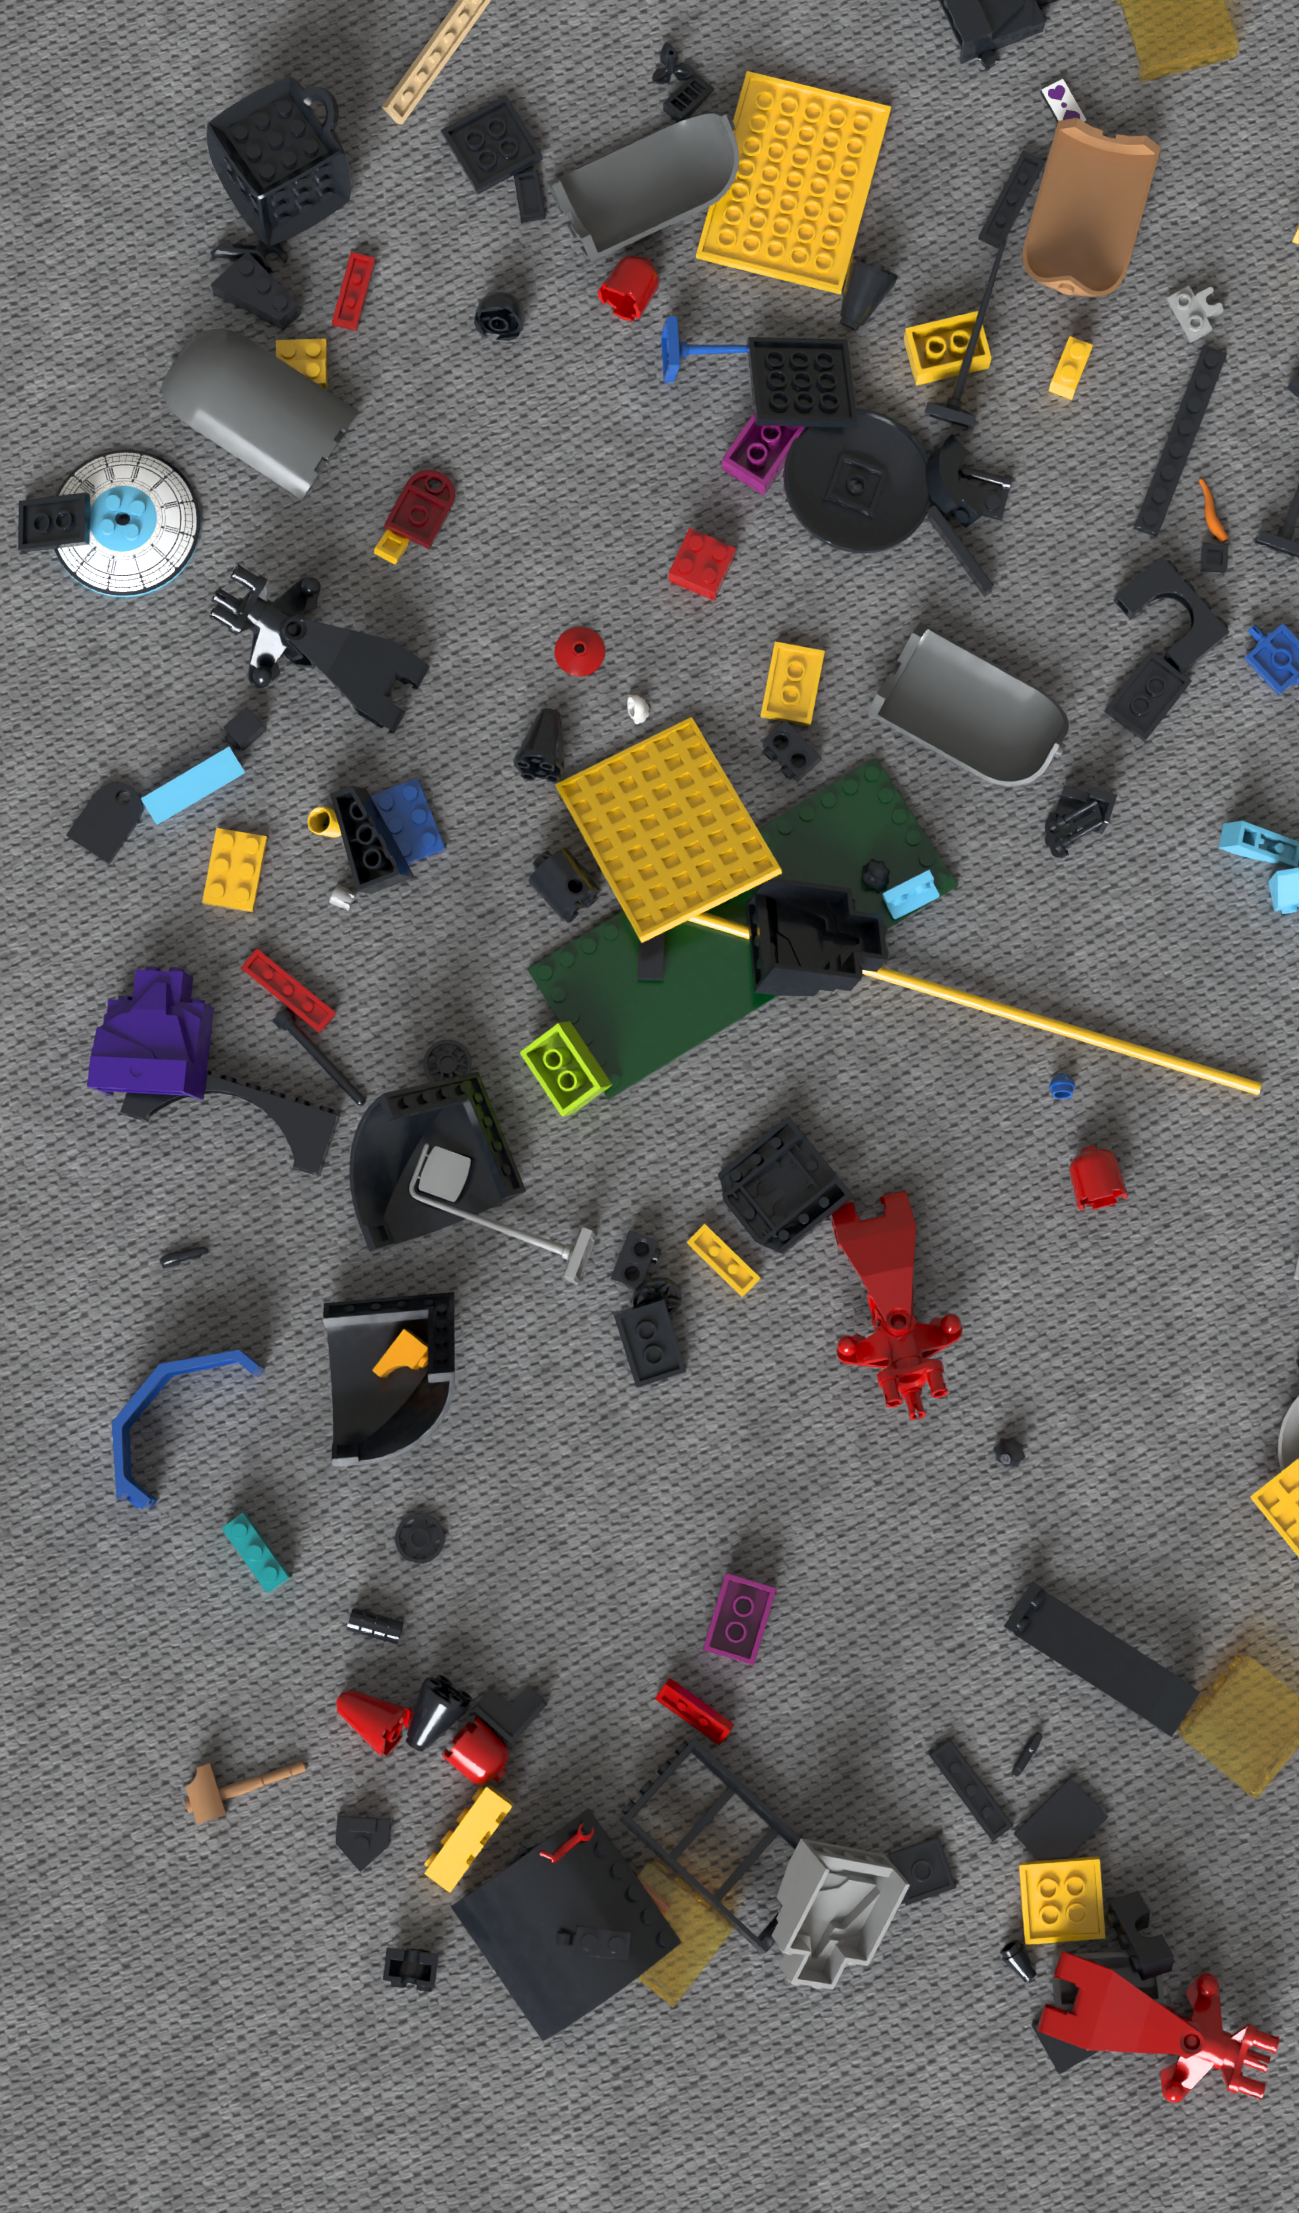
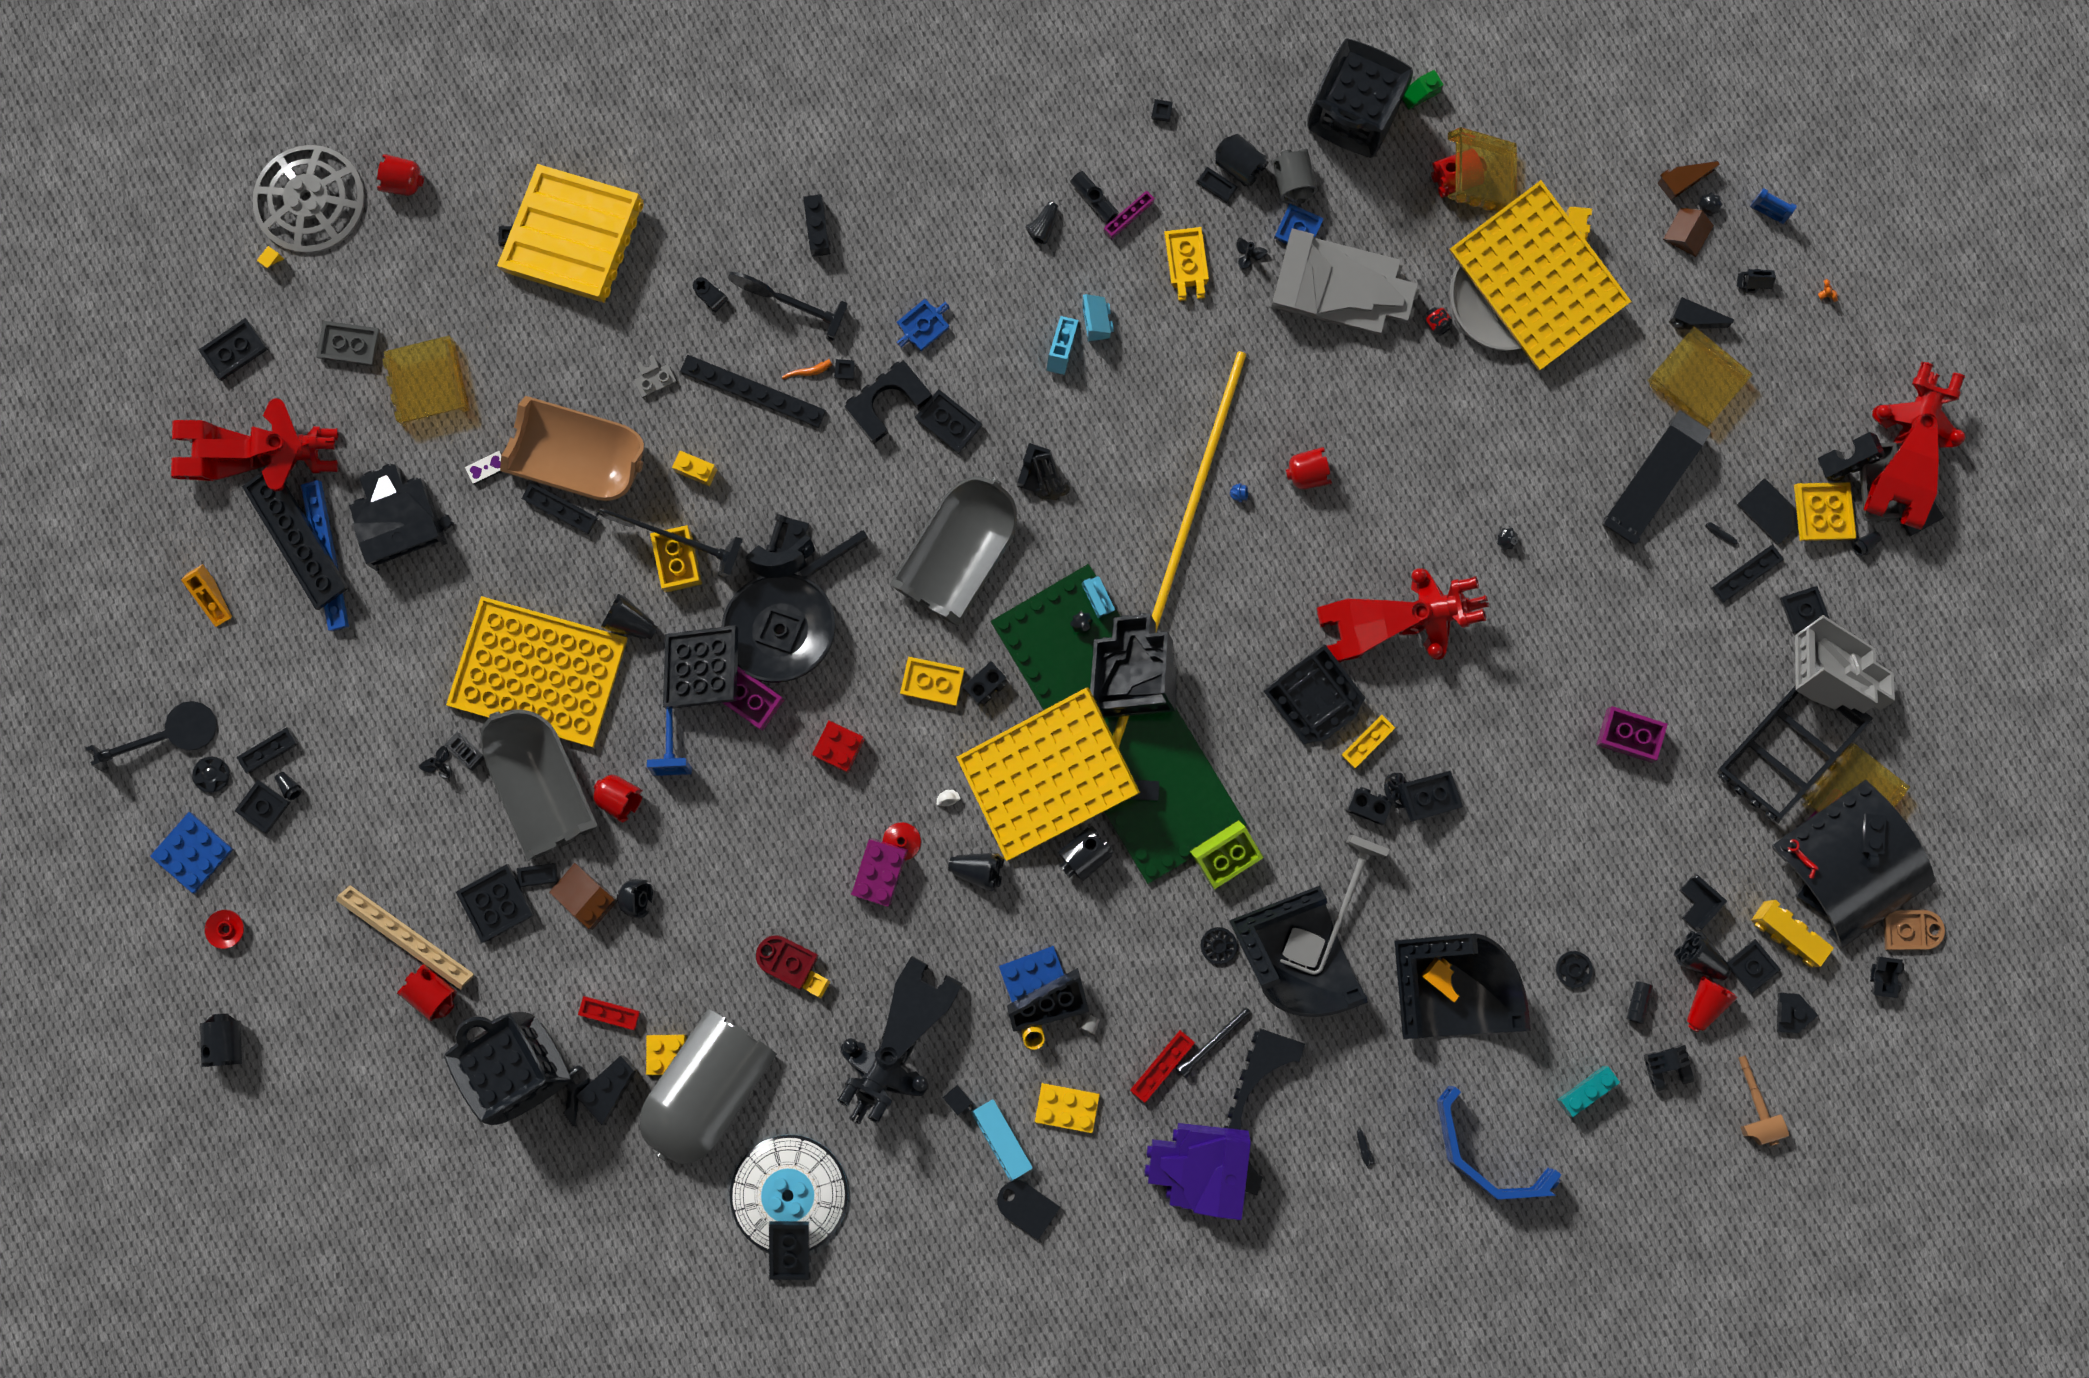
camera: 90 degrees left, 0 degrees up
(295, 1661) = (1667, 1061): none -> black piece
(375, 67) = (428, 993): none -> red cylinder
(425, 1784) = (1753, 966): none -> black tile
(476, 2007) = (1911, 930): none -> medium nougat tile
(478, 1753) = (1732, 927): red cylinder -> none
(501, 253) = (583, 896): none -> reddish brown slope
(537, 620) = (879, 872): none -> magenta brick
(694, 1711) = (1697, 768): red plate -> none

